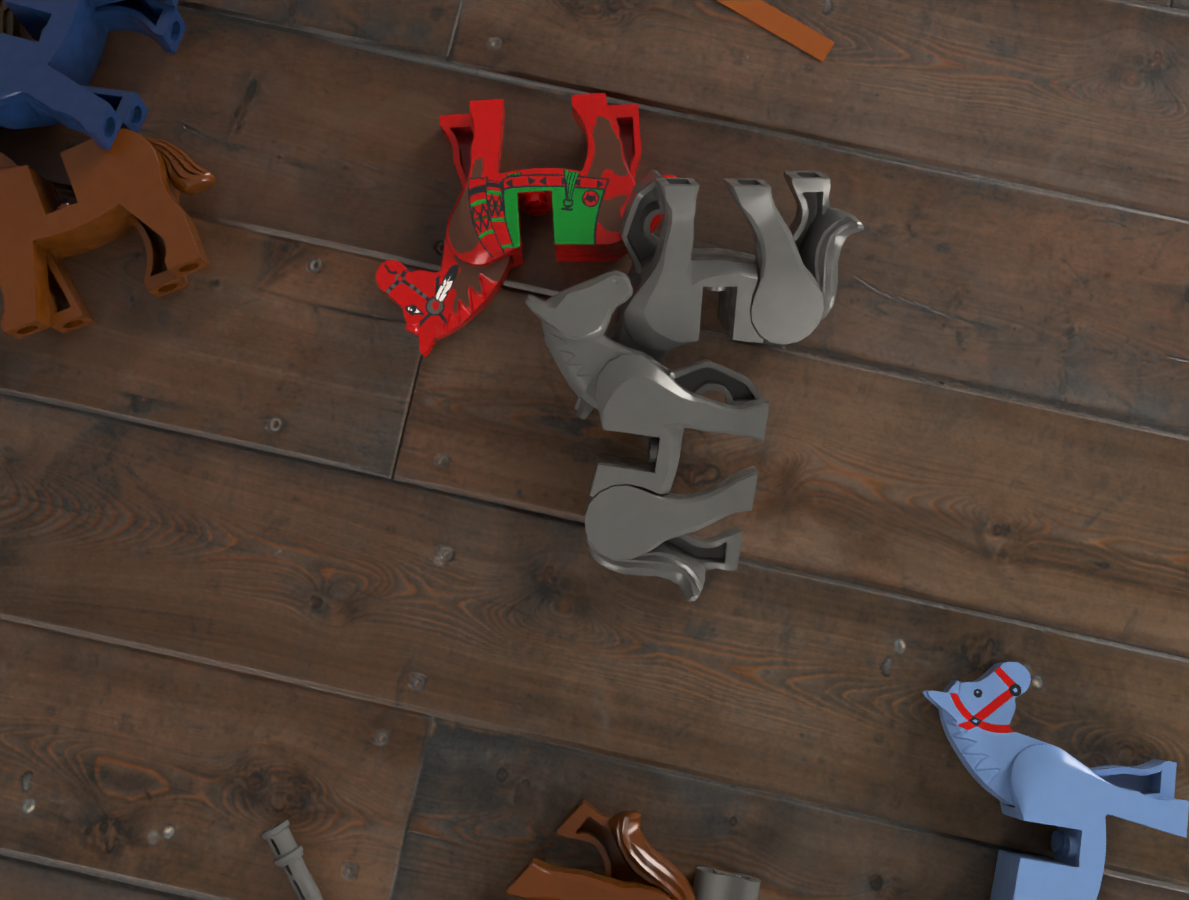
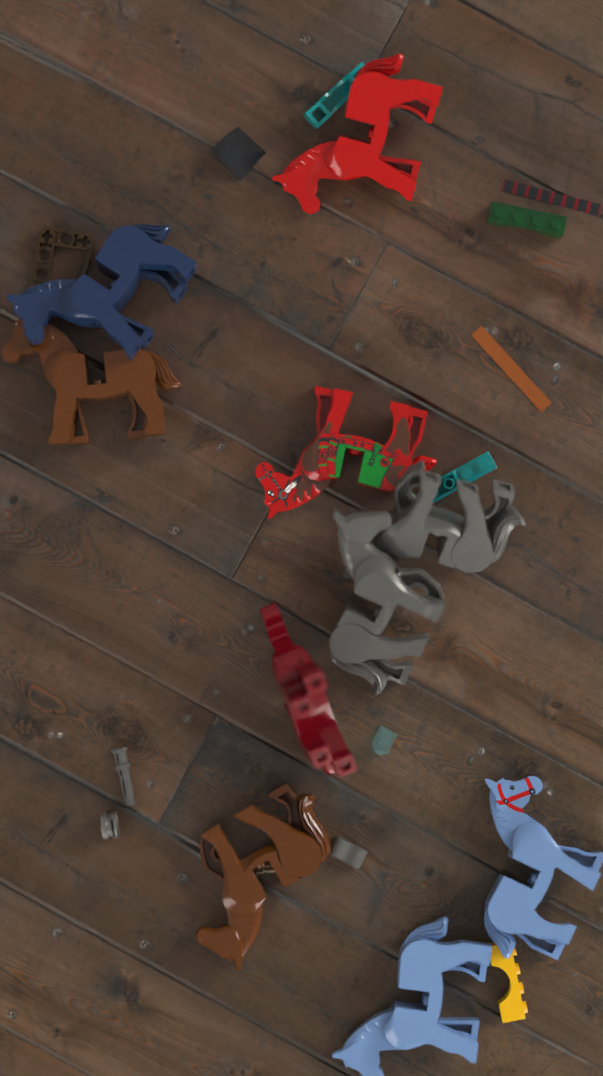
camera: 15 degrees right, 5 degrees up
(575, 648) = (306, 701): none -> dark red animal
(716, 206) = (468, 472): none -> teal slope
(729, 677) = (383, 740): none -> clear light blue bracket

